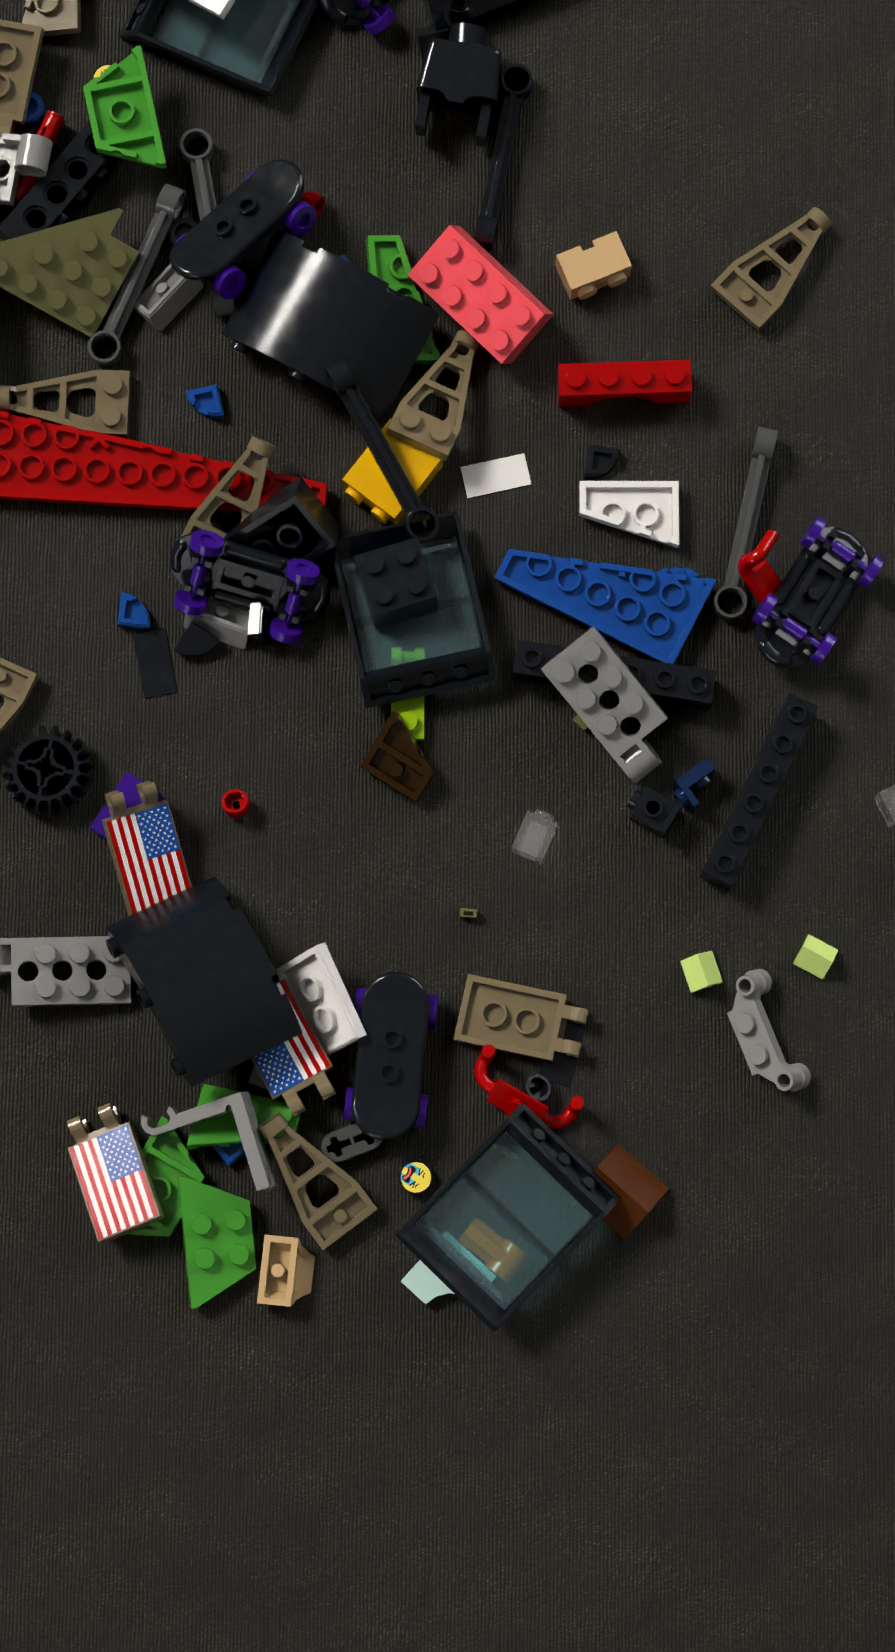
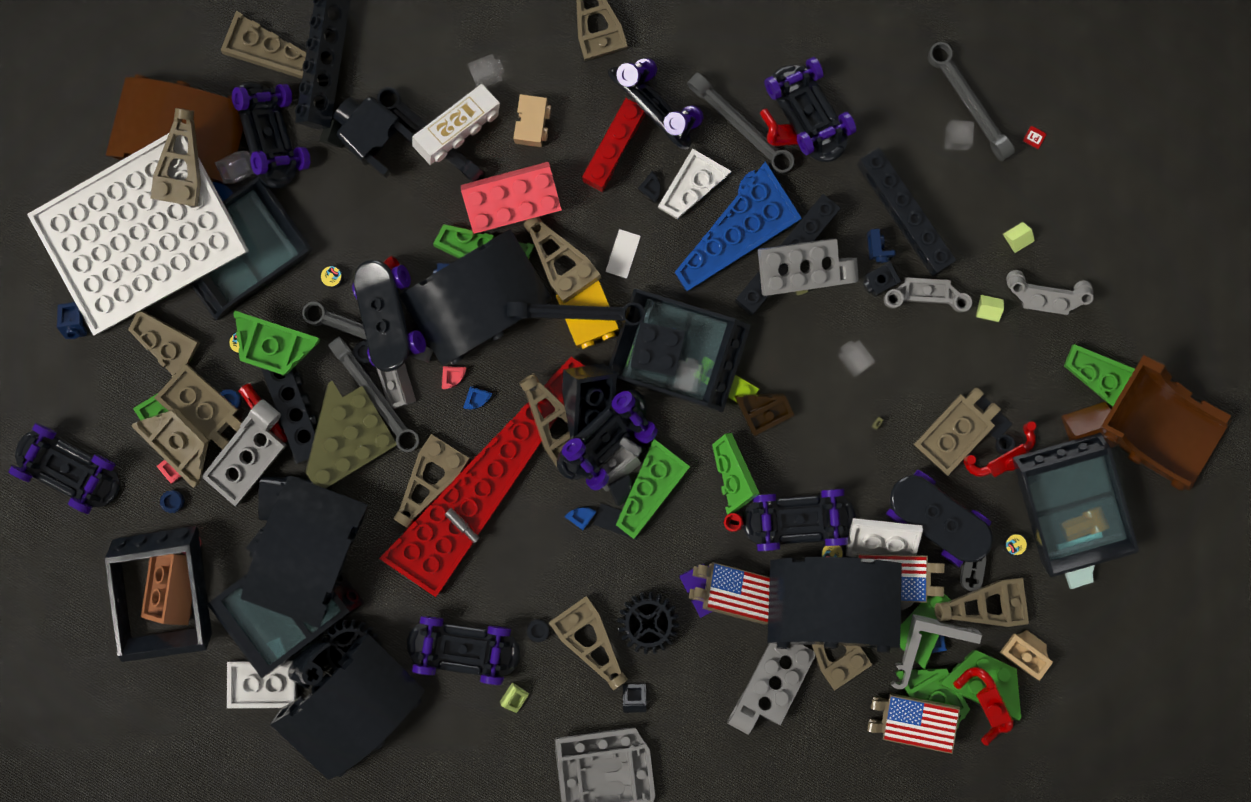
camera: 55 degrees left, 5 degrees up
(37, 470) = (461, 524): none -> flat silver pin
(131, 1049) = (843, 668): none -> dark tan plate
(190, 1253) = (991, 703): none -> red piece
(216, 356) = (452, 376): none -> coral tile
(229, 678) = (653, 484): none -> bright green wing
(254, 141) = (331, 276): none -> tile
(273, 947) = (831, 551): none -> tile
(286, 882) = (799, 520): none -> black piece
(290, 777) = (736, 476): none -> bright green wing
(384, 637) = (689, 376): none -> clear brick
(531, 176) = (456, 124): none -> white brick
(621, 176) = (486, 71): none -> clear brick
(673, 877) = (928, 292): none -> light grey plate
(680, 1273) = (1164, 425): none -> reddish brown panel
(700, 1163) = (1098, 372): none -> bright green wing
(702, 402) = (673, 123): none -> piece

